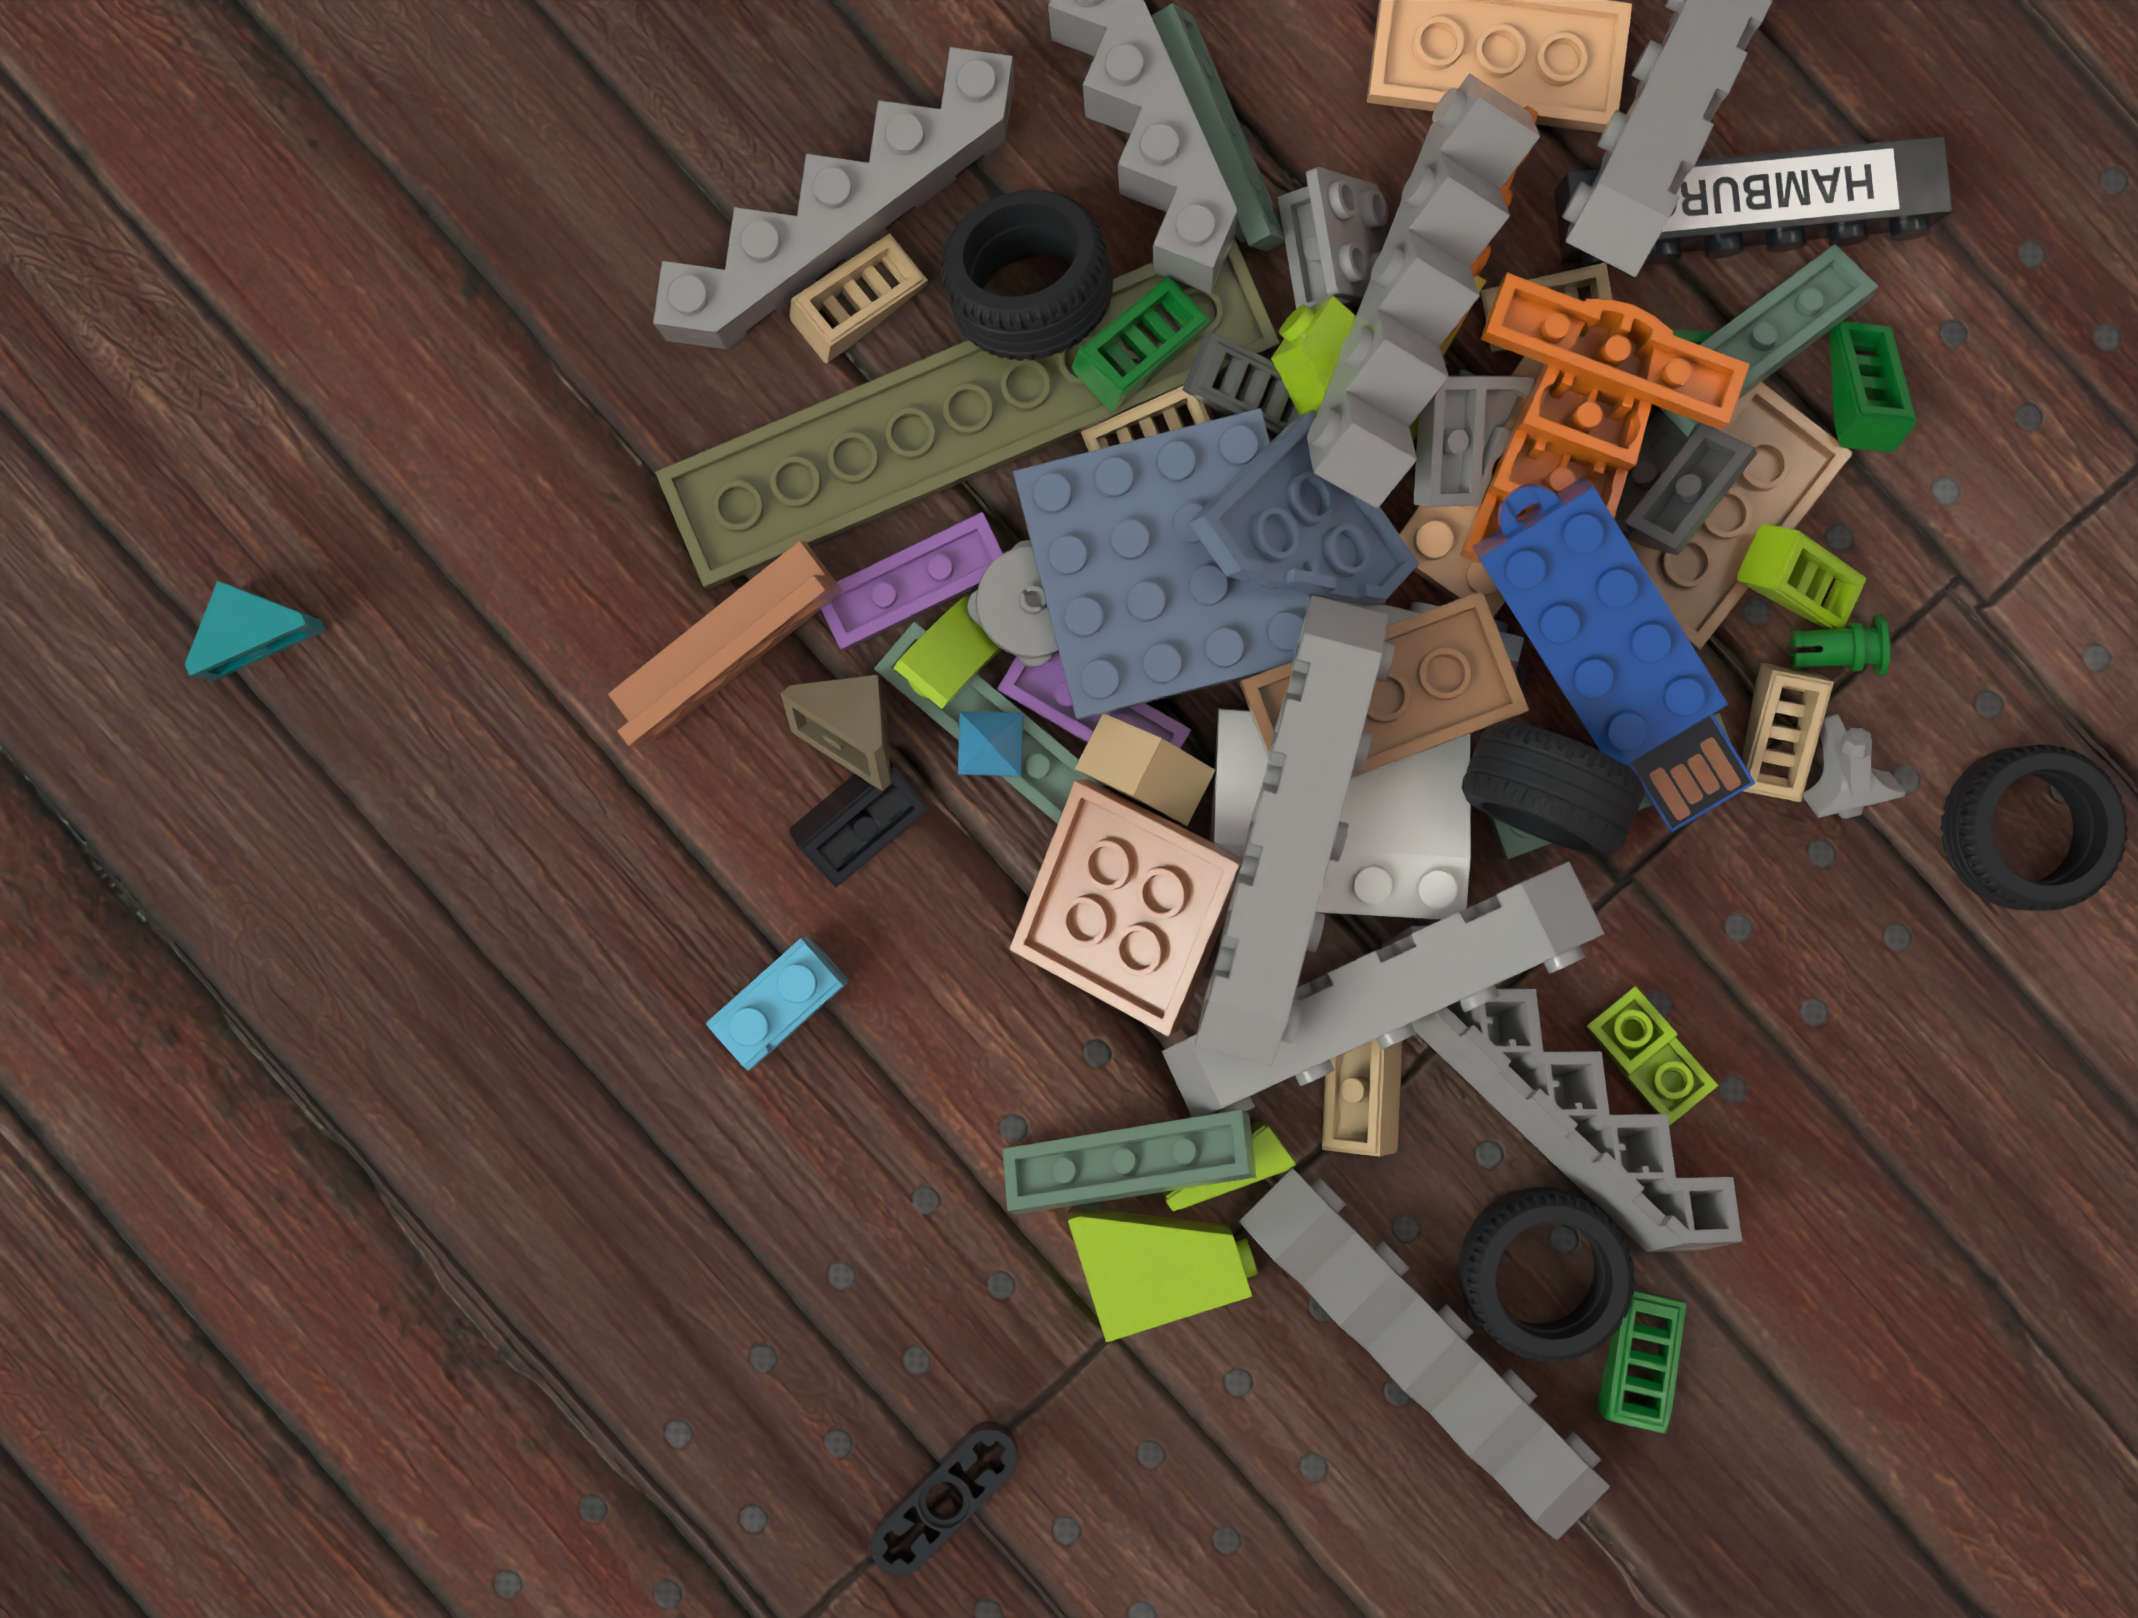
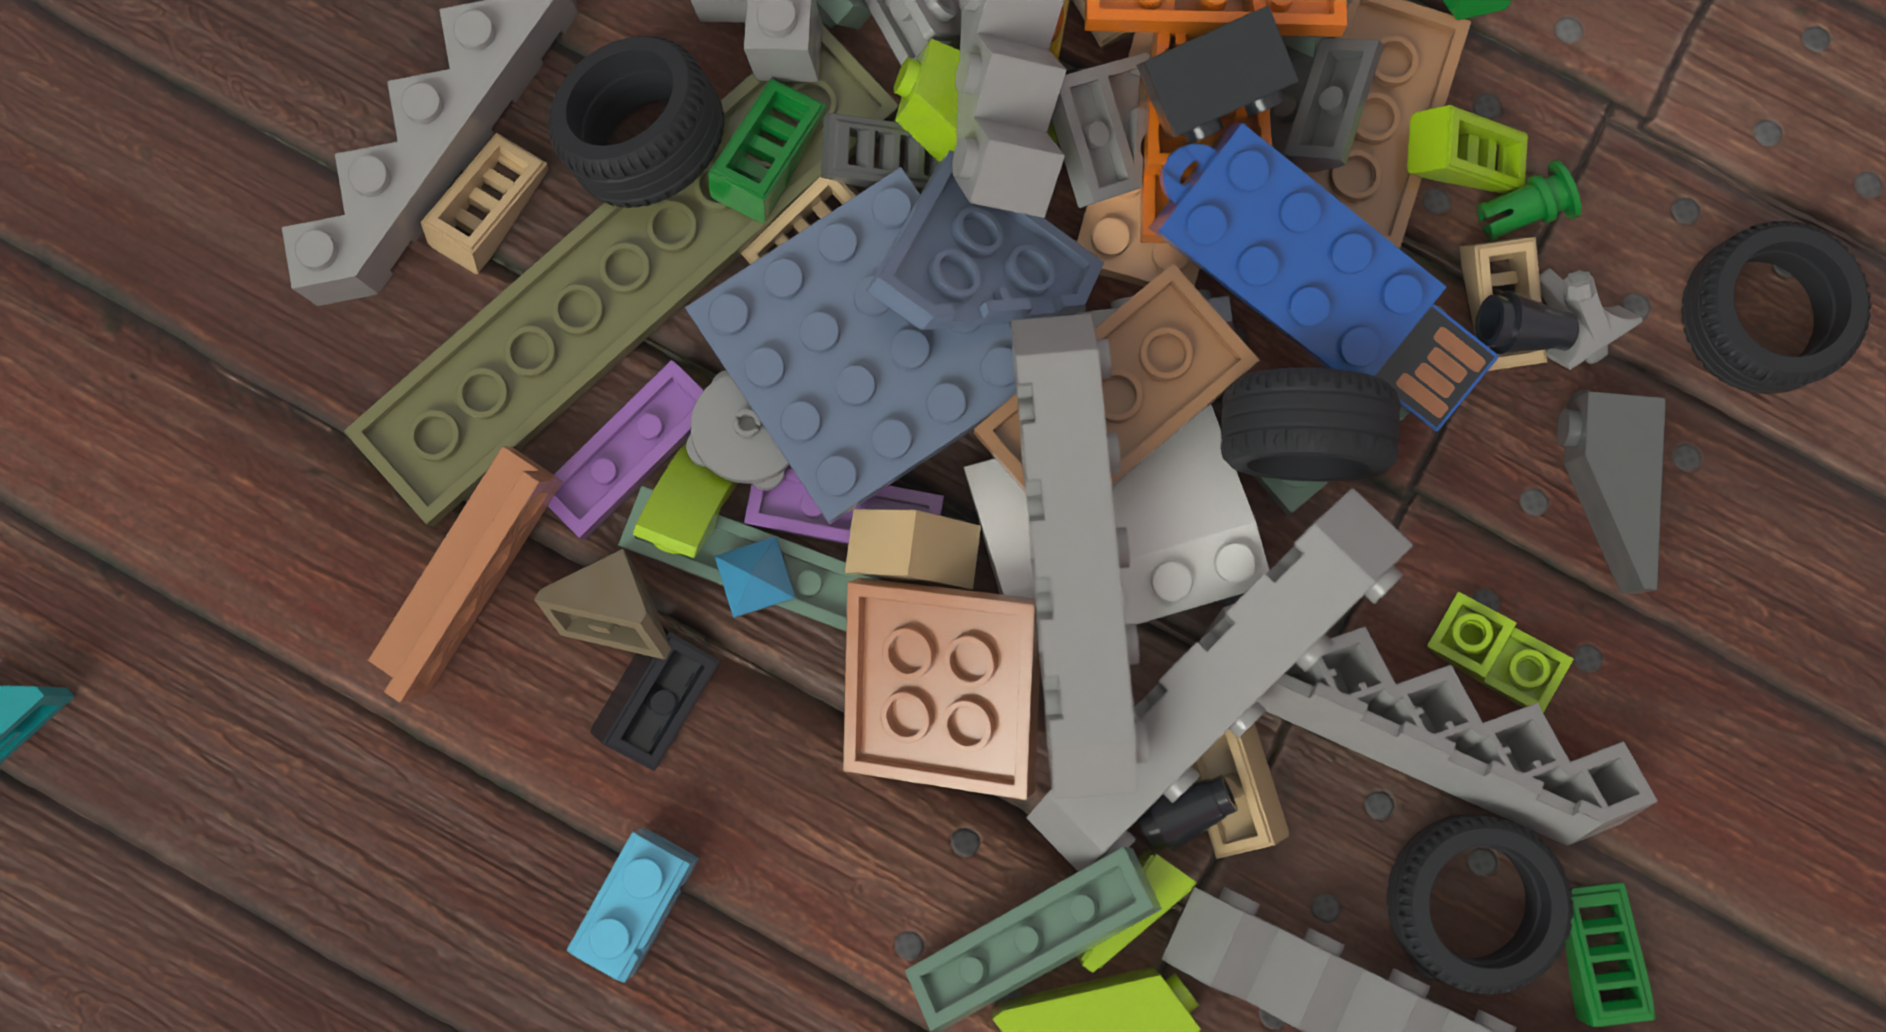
camera: 20 degrees left, 5 degrees down
(1314, 1102) = (1193, 813): none -> black cone
(1589, 430) = (1218, 74): none -> black brick
(1787, 760) = (1520, 324): none -> black cone
(1824, 928) = (1617, 472): none -> dark grey slope

